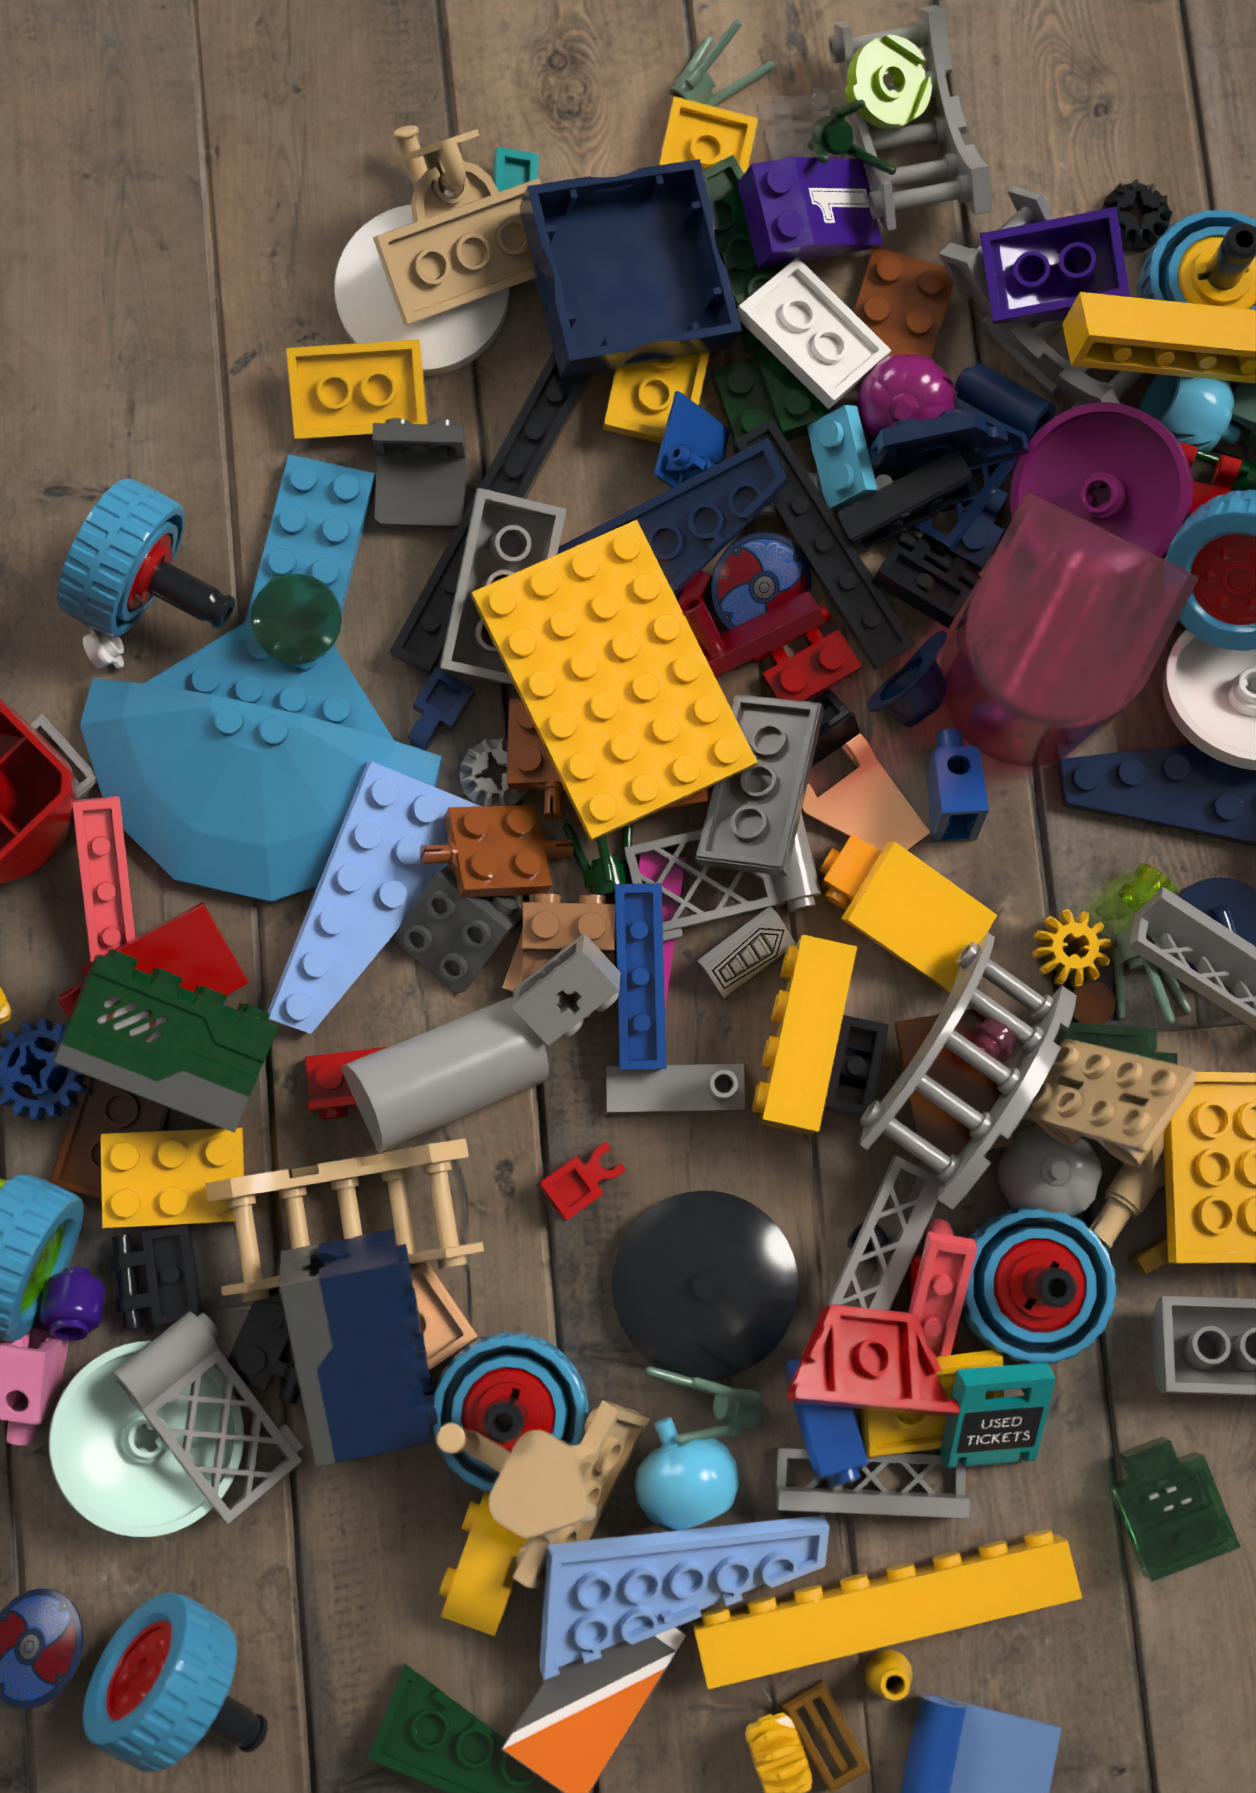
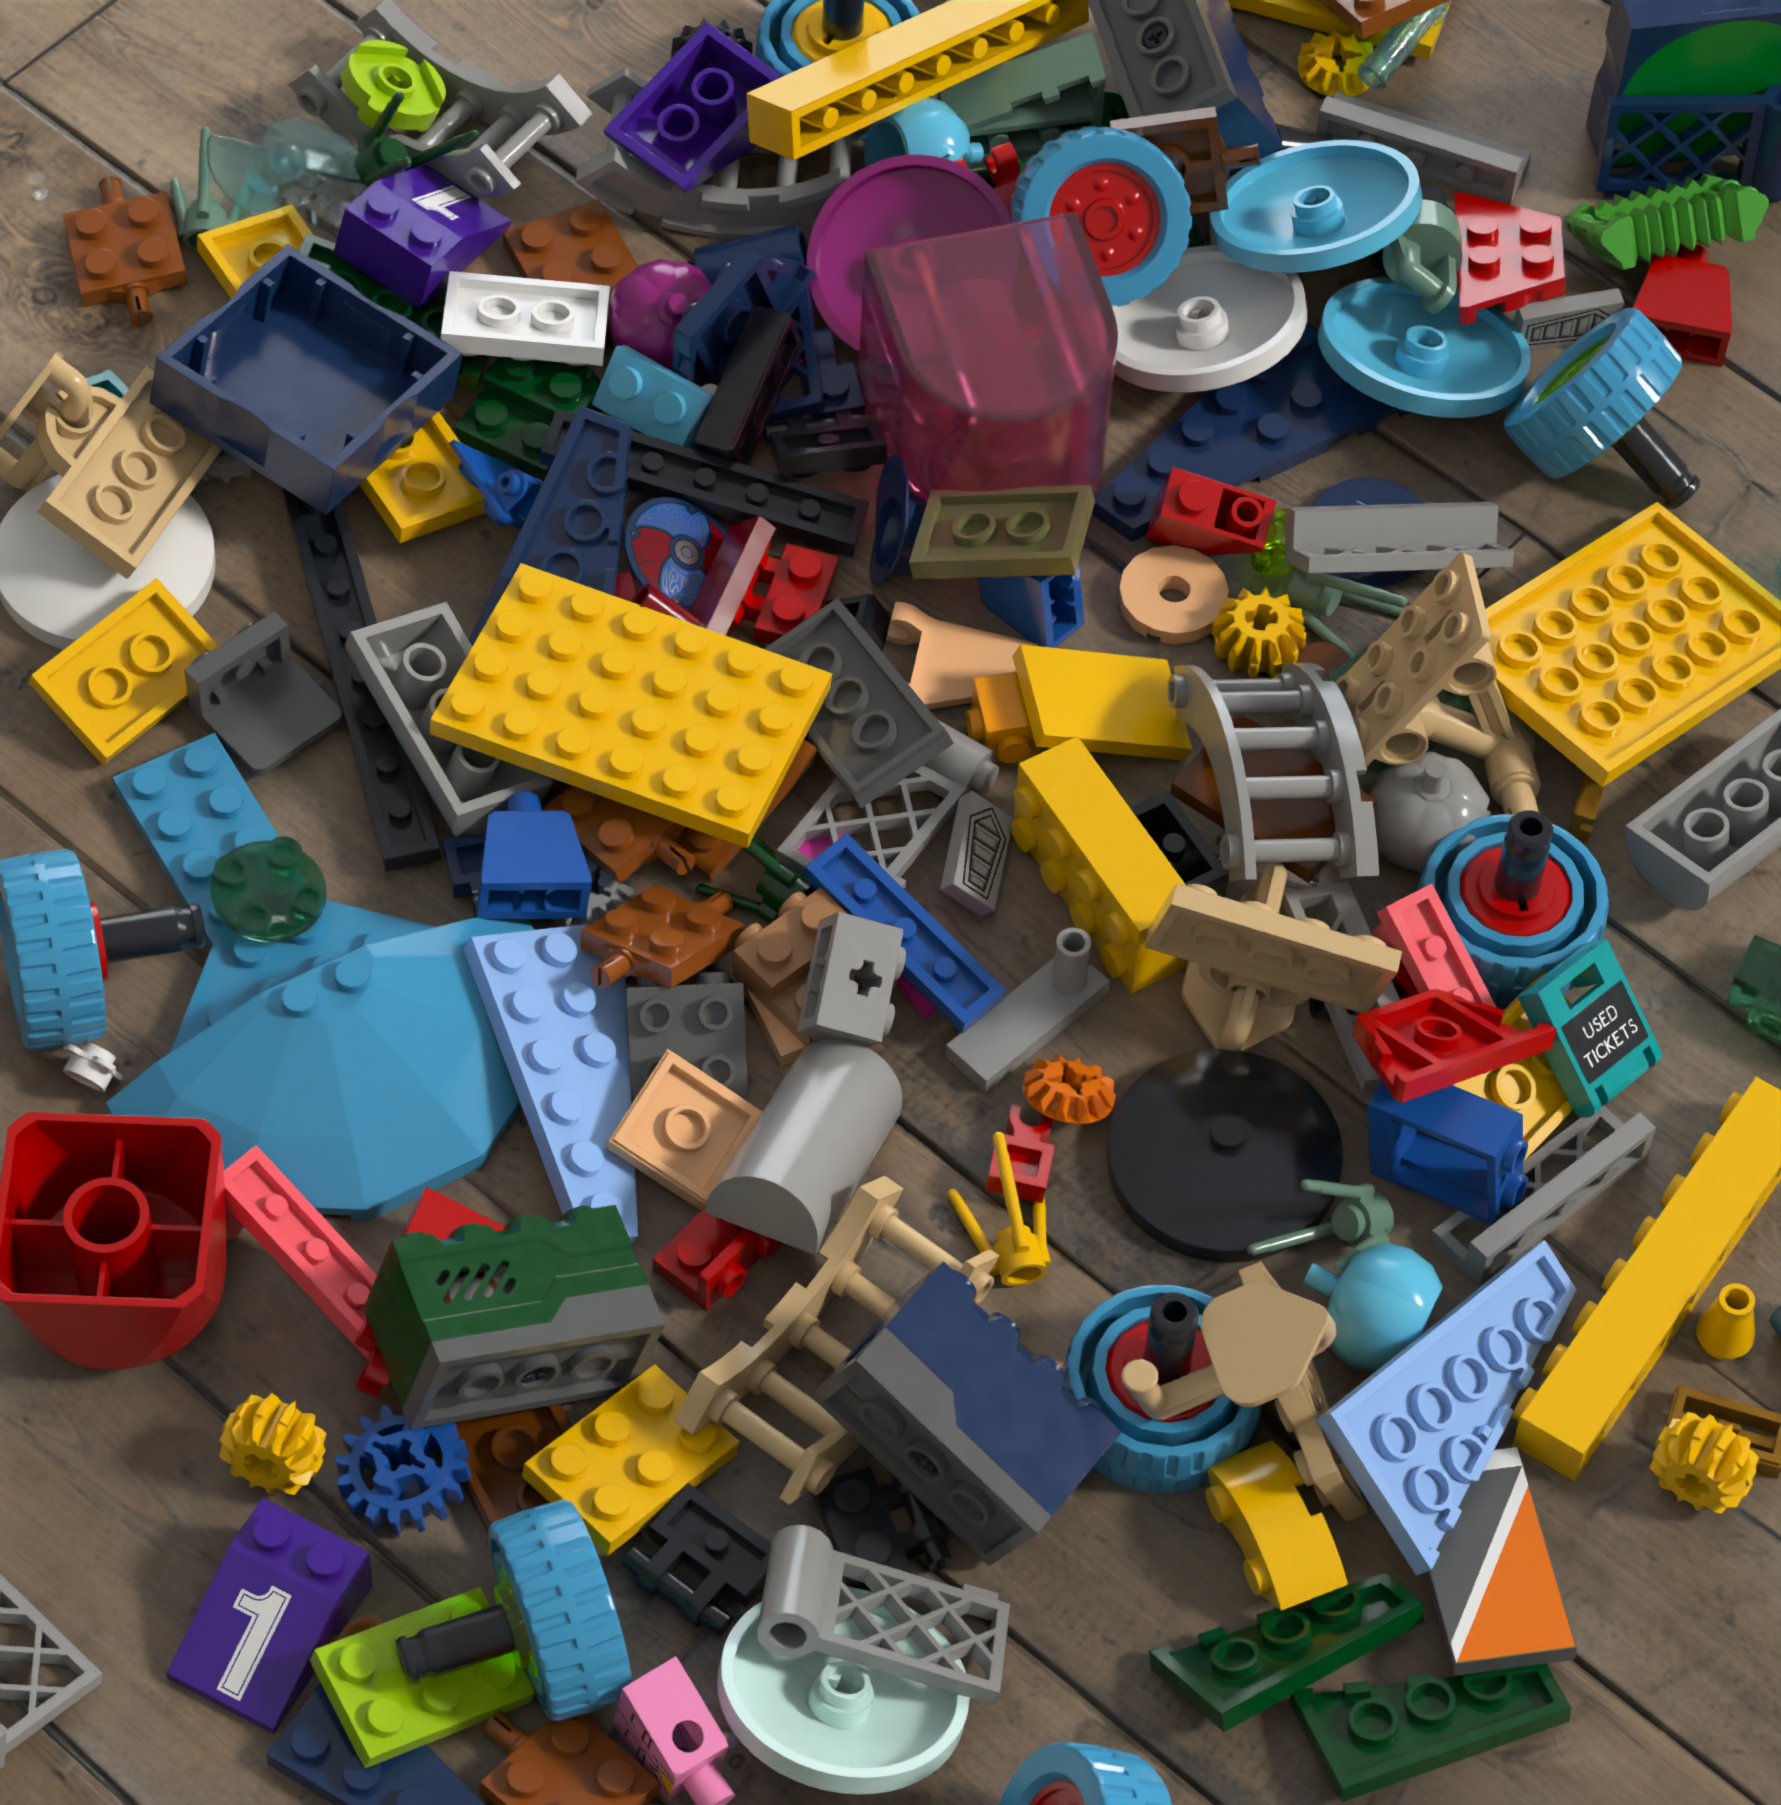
camera: 45 degrees left, 25 degrees down
(72, 1304) = (653, 1632): dark purple head -> none
(397, 990) = (683, 1129): none -> light nougat tile
(406, 1636) = (1286, 1650): none -> dark green wing
(459, 733) = (532, 864): none -> blue torso
(516, 1243) = (1020, 1252): none -> yellow plant
(630, 1168) = (1053, 1085): none -> orange gear
(631, 67) = (125, 249): none -> dark orange plate
(789, 80) = (287, 150): none -> clear light blue piece
(823, 1194) = (1257, 965): none -> tan plate
(953, 756) = (1002, 533): none -> olive plate
(993, 1039) = (1269, 711): clear pink plate -> none
(1074, 862) = (1172, 569): none -> light nougat tile
(1116, 843) = (1209, 516): none -> red slope

